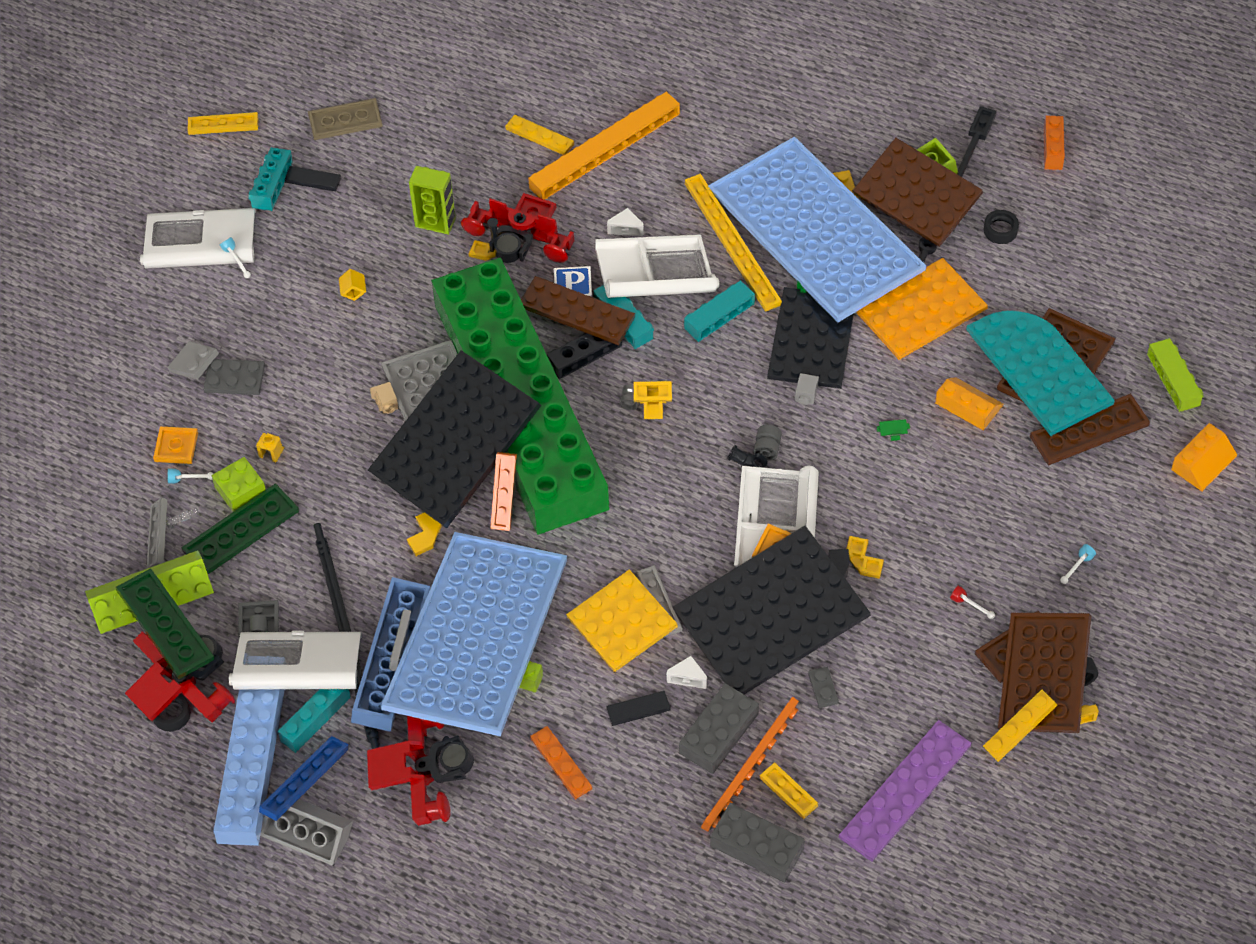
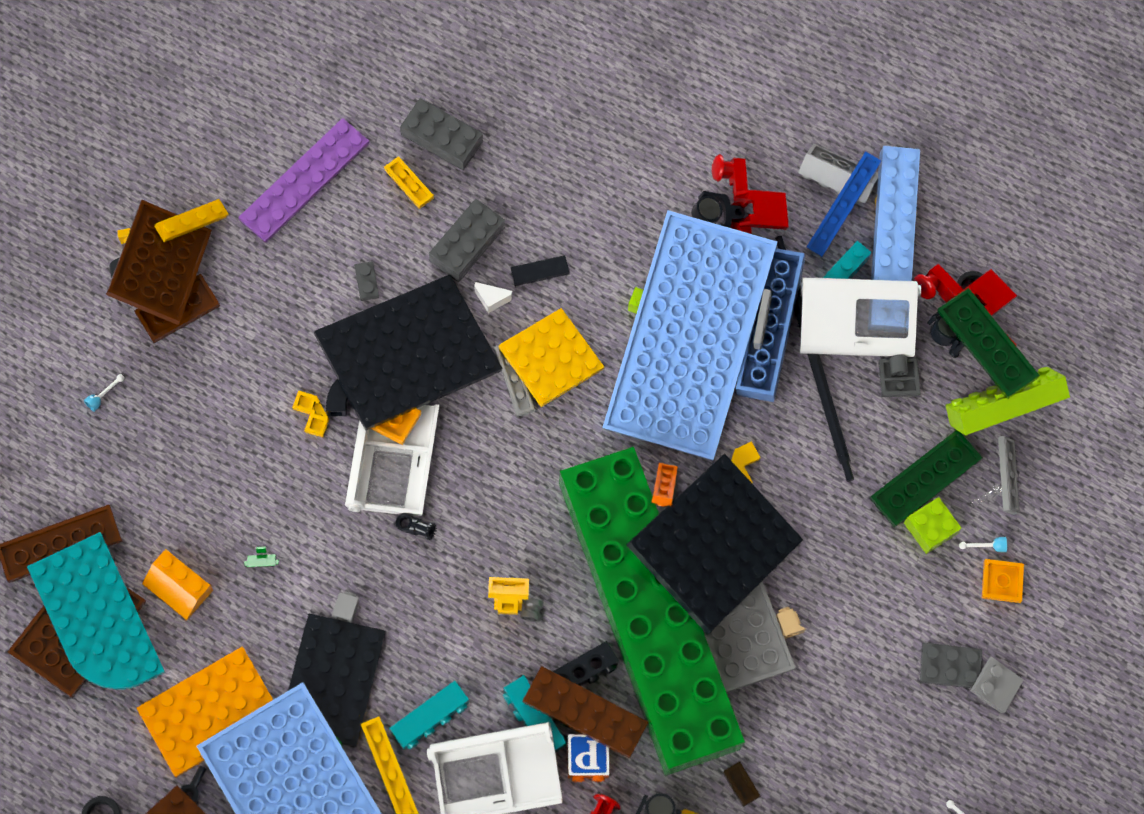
camera: 175 degrees right, 15 degrees up
(271, 443) = (904, 569): yellow window -> none
(352, 284) = (832, 773): yellow brick -> none
(430, 271) = (741, 784): none -> dark brown plate
(561, 762) = (612, 223): orange plate -> none
(747, 771) = (440, 208): orange plate -> none
(768, 441) = (393, 542): dark grey wheel -> none
(960, 595) = (224, 365): hinge -> none

